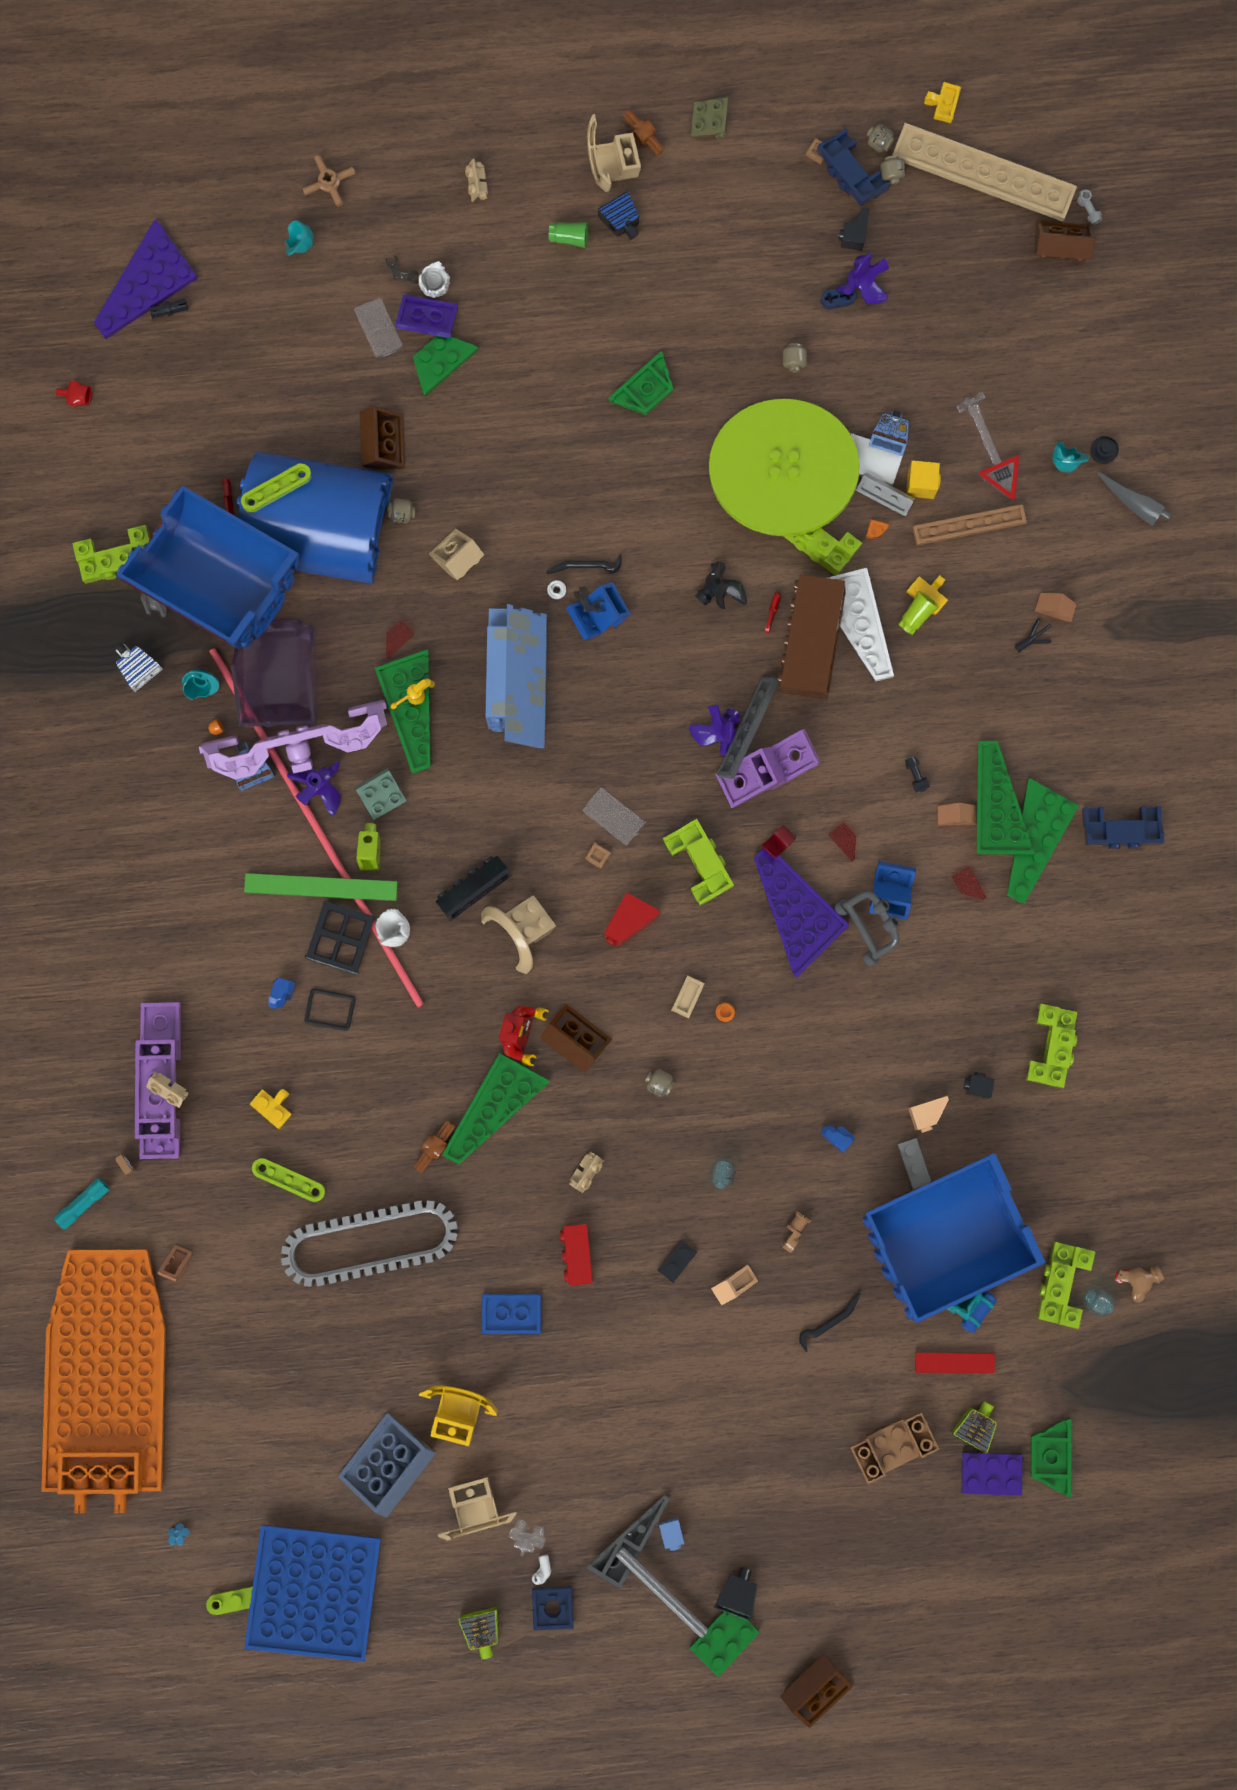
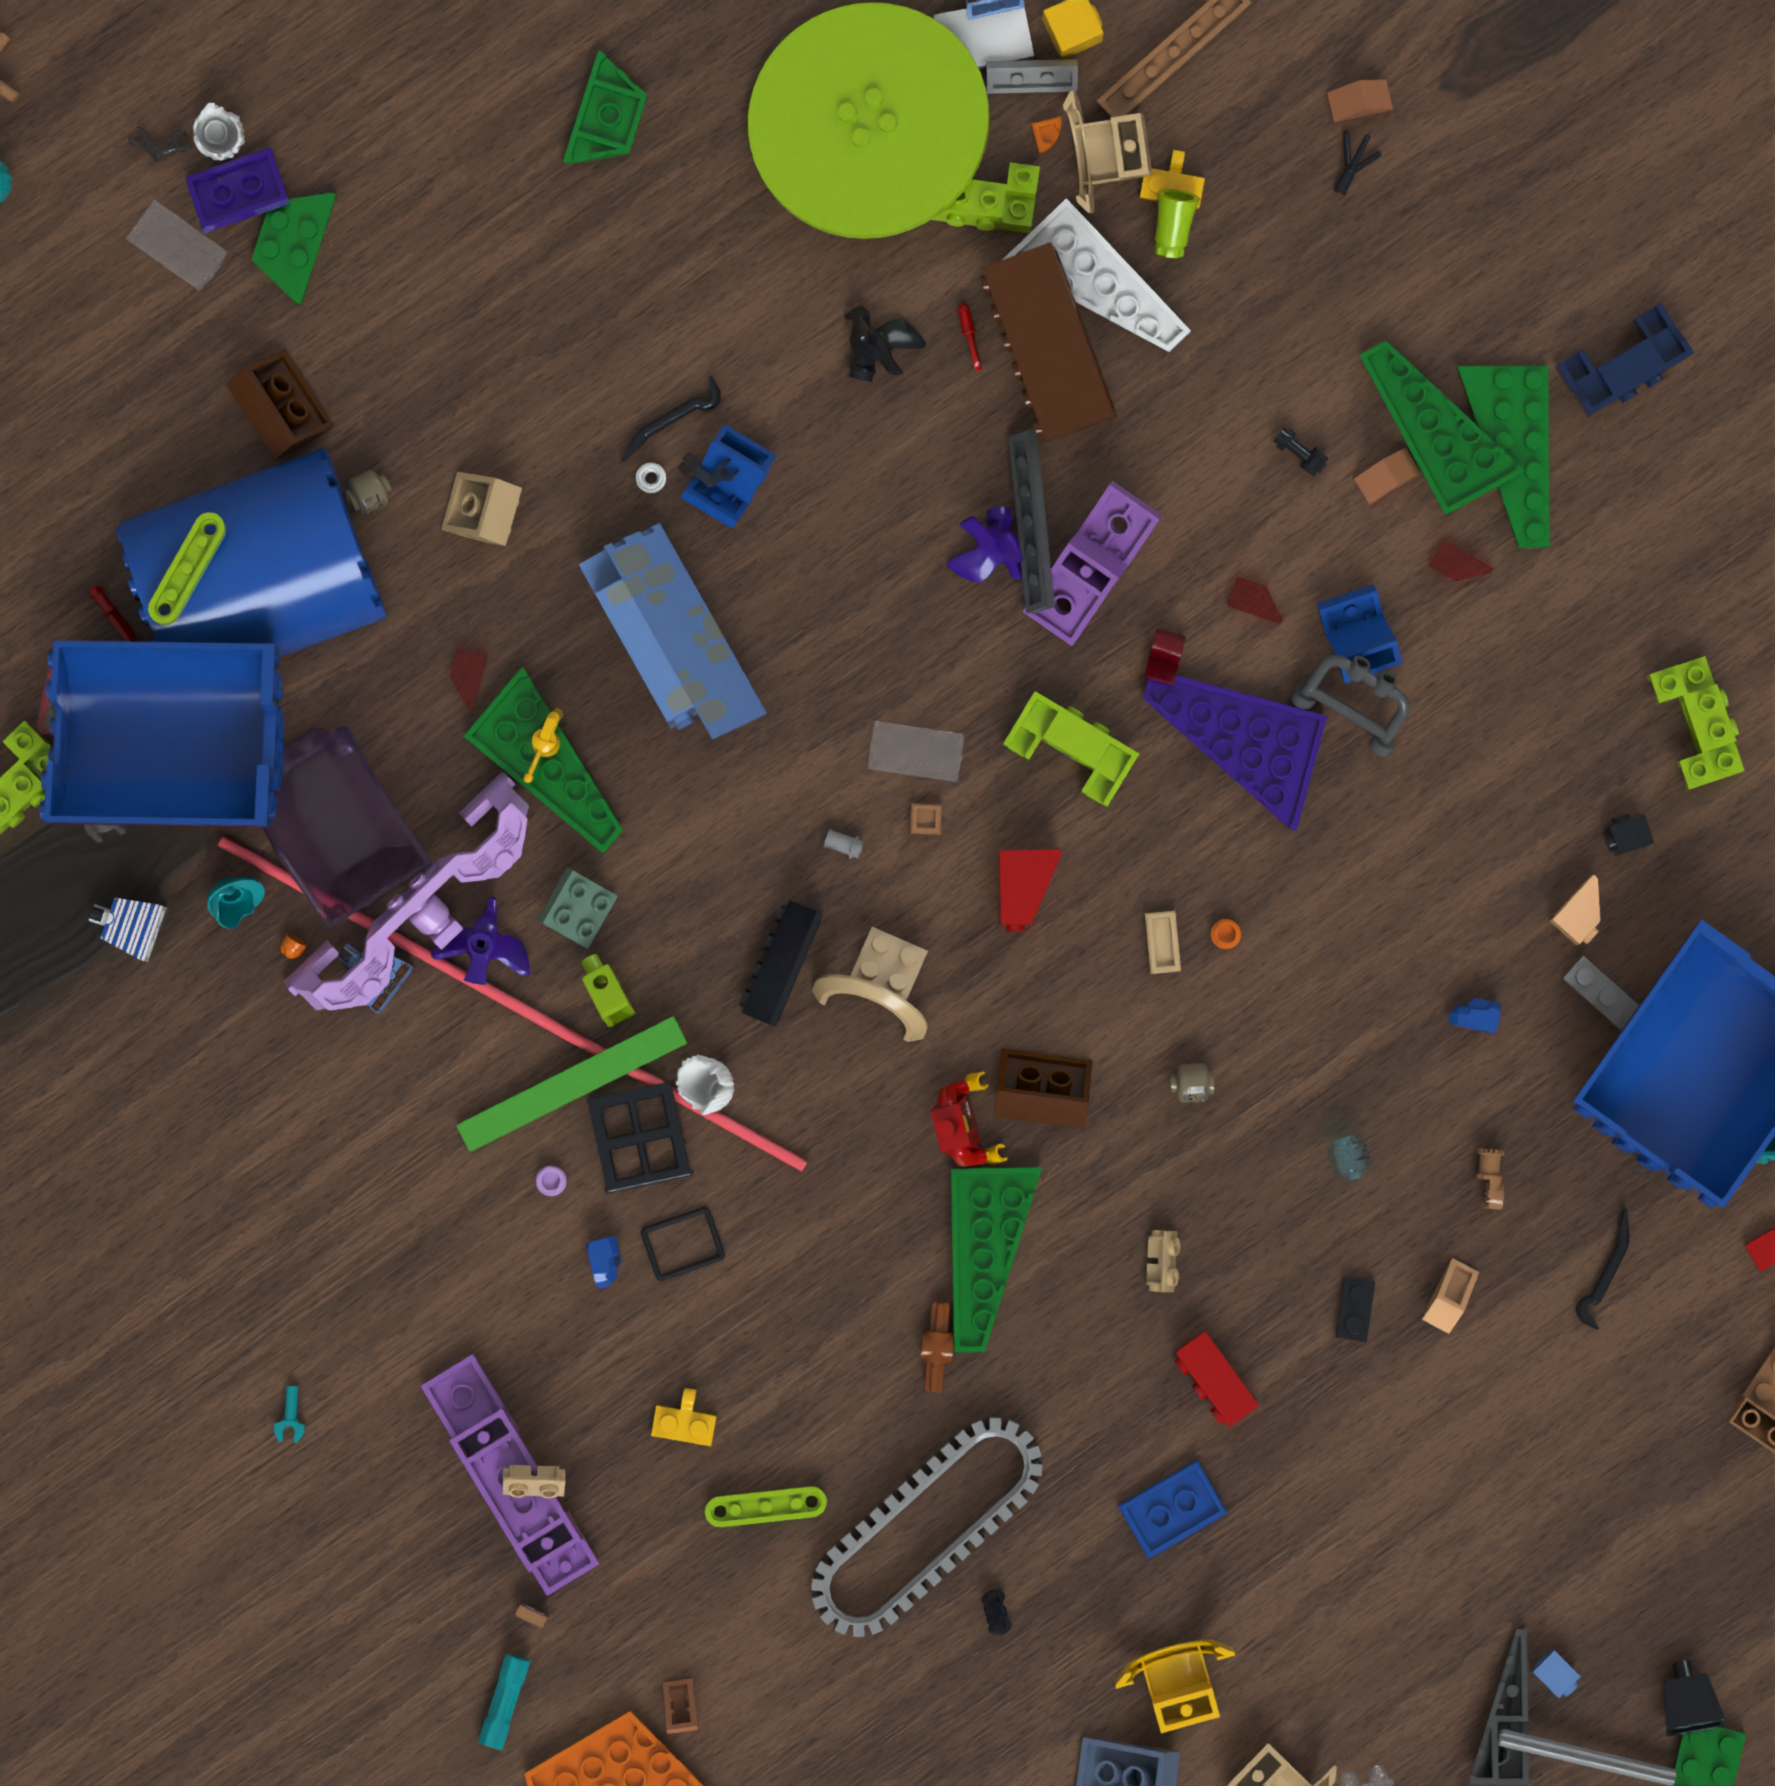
camera: 30 degrees left, 5 degrees up
(61, 980) = (290, 1416): none -> teal bar
(279, 933) = (551, 1180): none -> lavender tile
(380, 1314) = (996, 1612): none -> black piece
(545, 843) = (844, 843): none -> light grey pin
(904, 554) = (1107, 149): none -> tan piece

